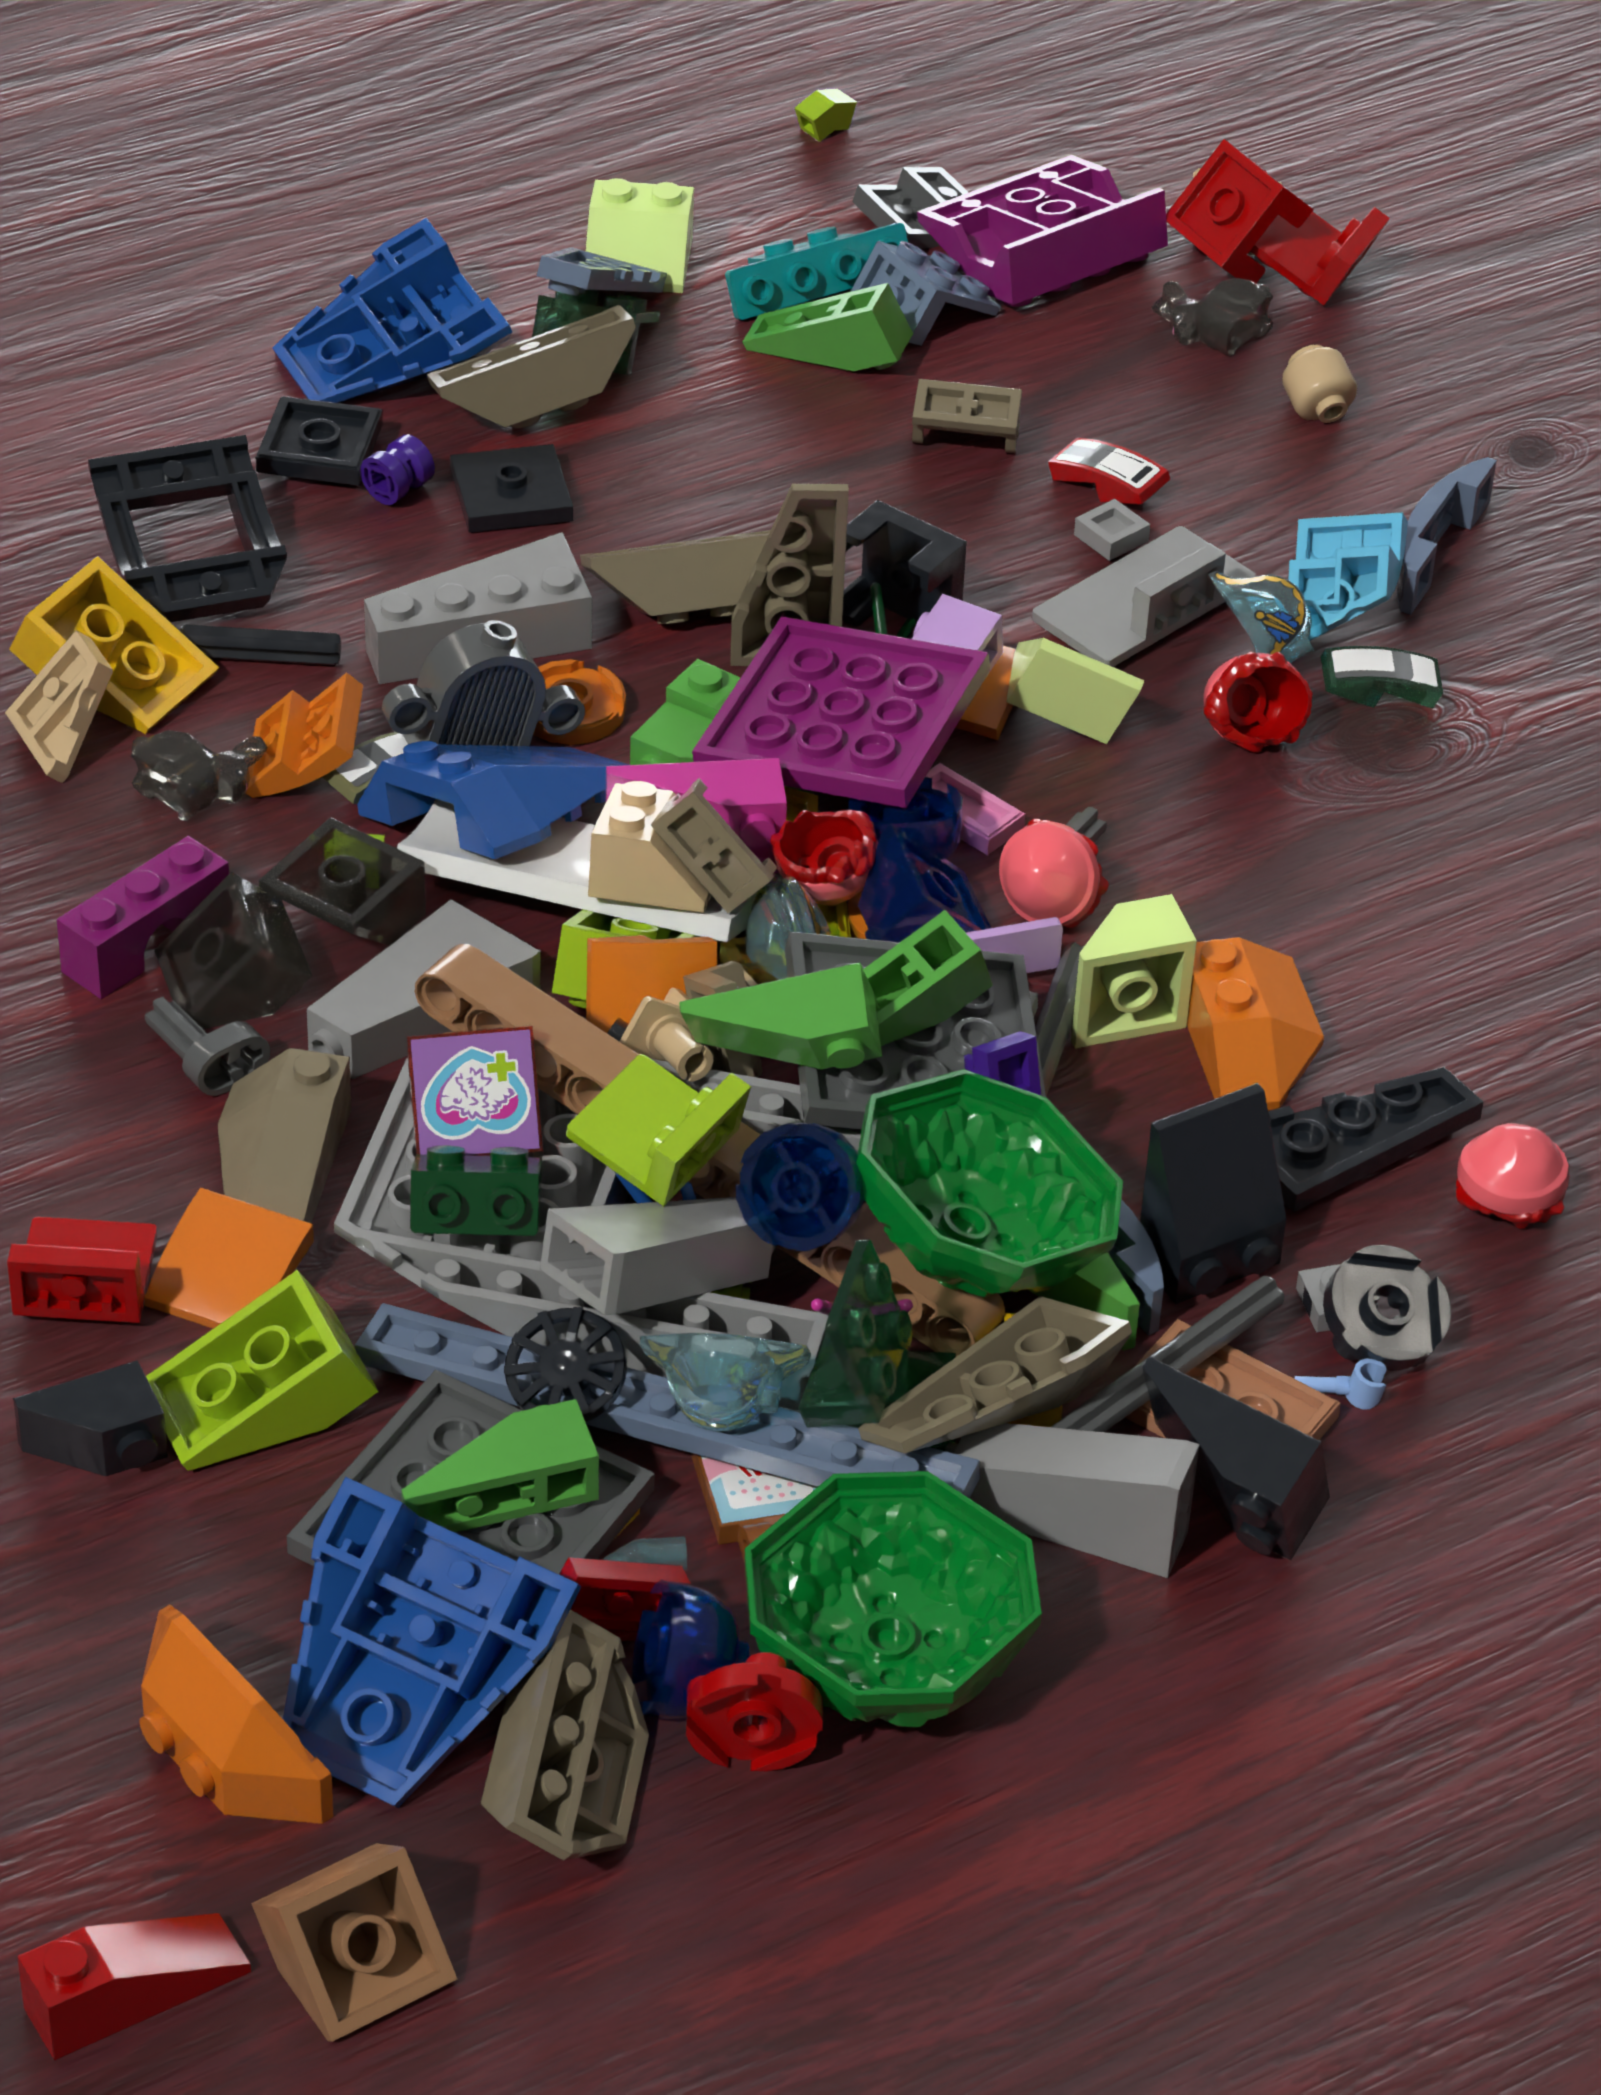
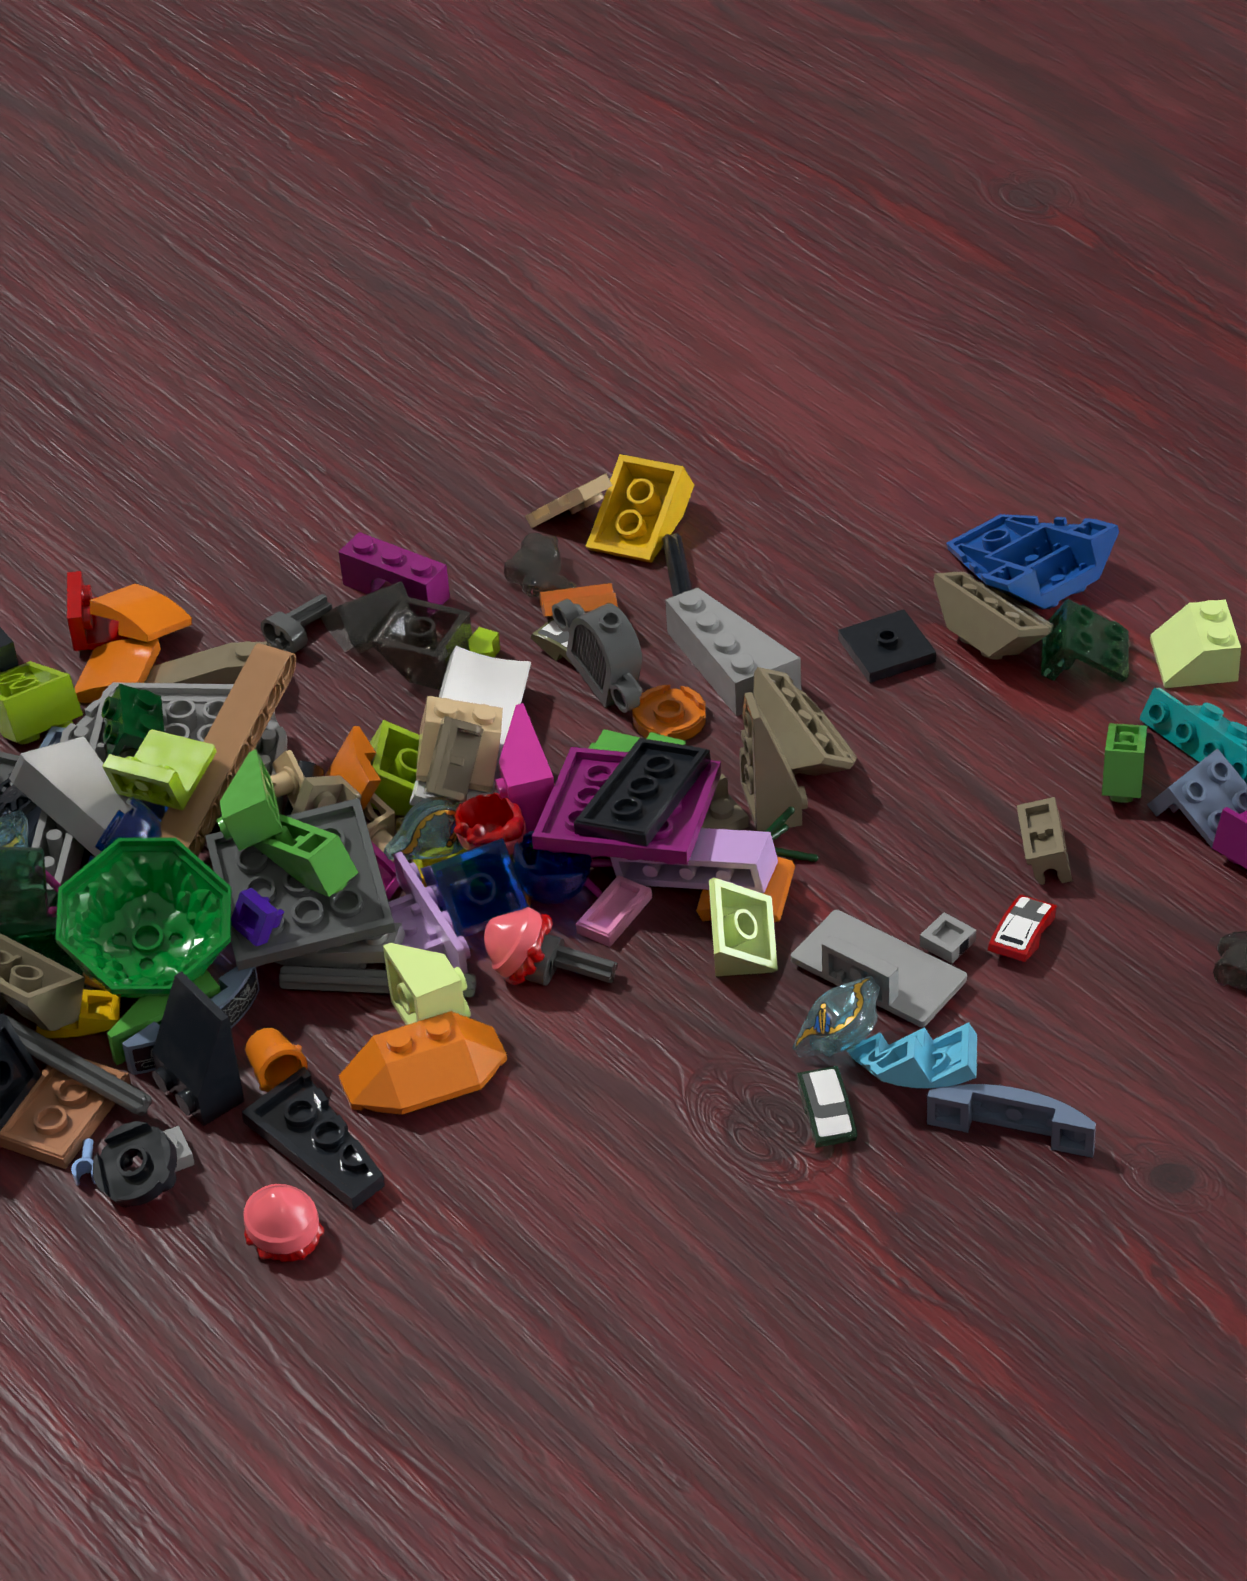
camera: 85 degrees right, 0 degrees up
(119, 1202) = (141, 612): none -> orange slope
(184, 475) = (798, 478): black wedge -> none
(319, 440) = (897, 551): black plate -> none
(377, 1004) = (357, 691): light grey slope -> none
(397, 469) = (873, 587): dark purple wheel -> none
(475, 1090) = (194, 695): tile -> none
(498, 793) = (526, 667): blue wedge -> none
(580, 270) = (1109, 618): sand blue wing -> none
(839, 681) = (642, 792): none -> black tile
(907, 559) = (826, 829): black panel -> none
(1257, 701) = (754, 1030): red hair -> none
(1318, 382) = (1178, 1027): tan head -> none

